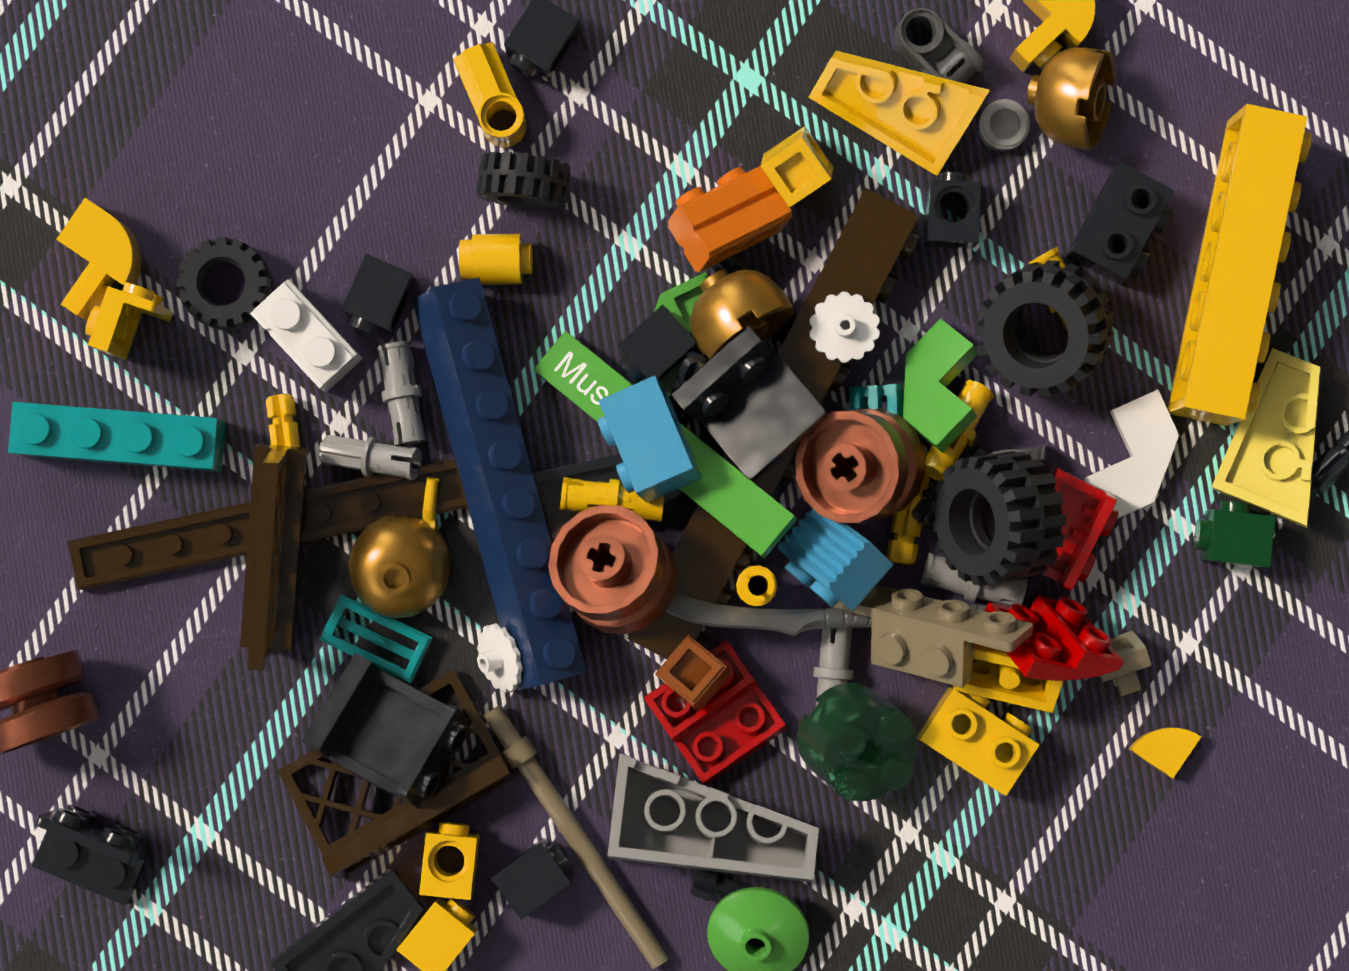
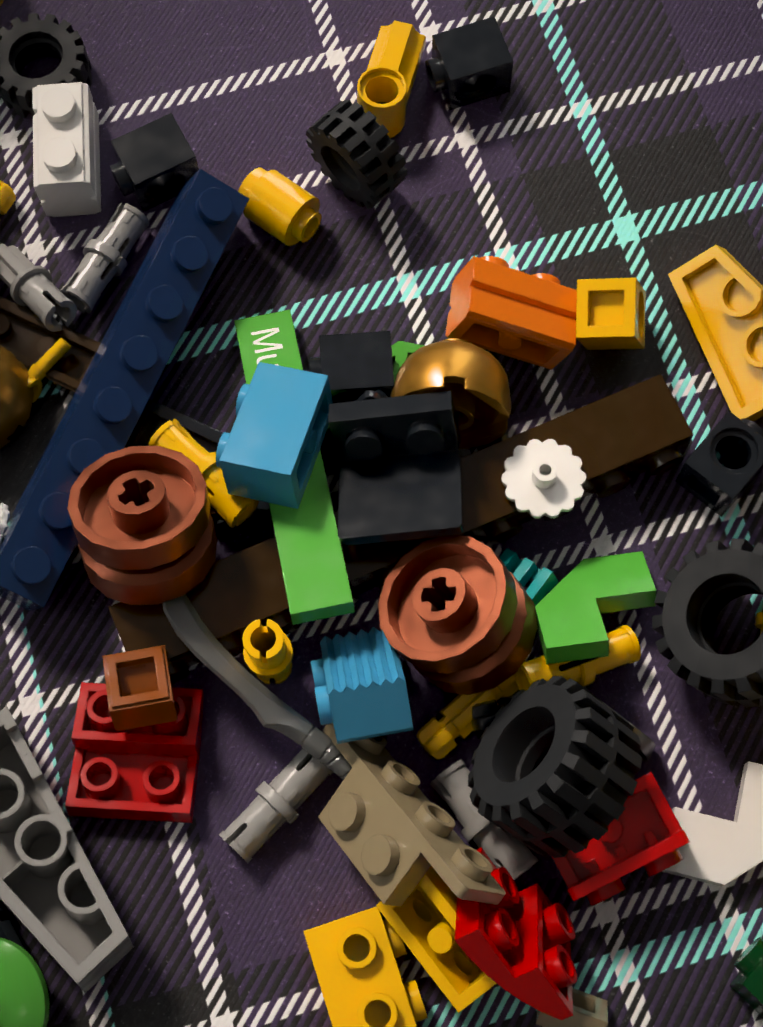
camera: 45 degrees right, 15 degrees down
(858, 742) = (239, 884): clear green brick -> none

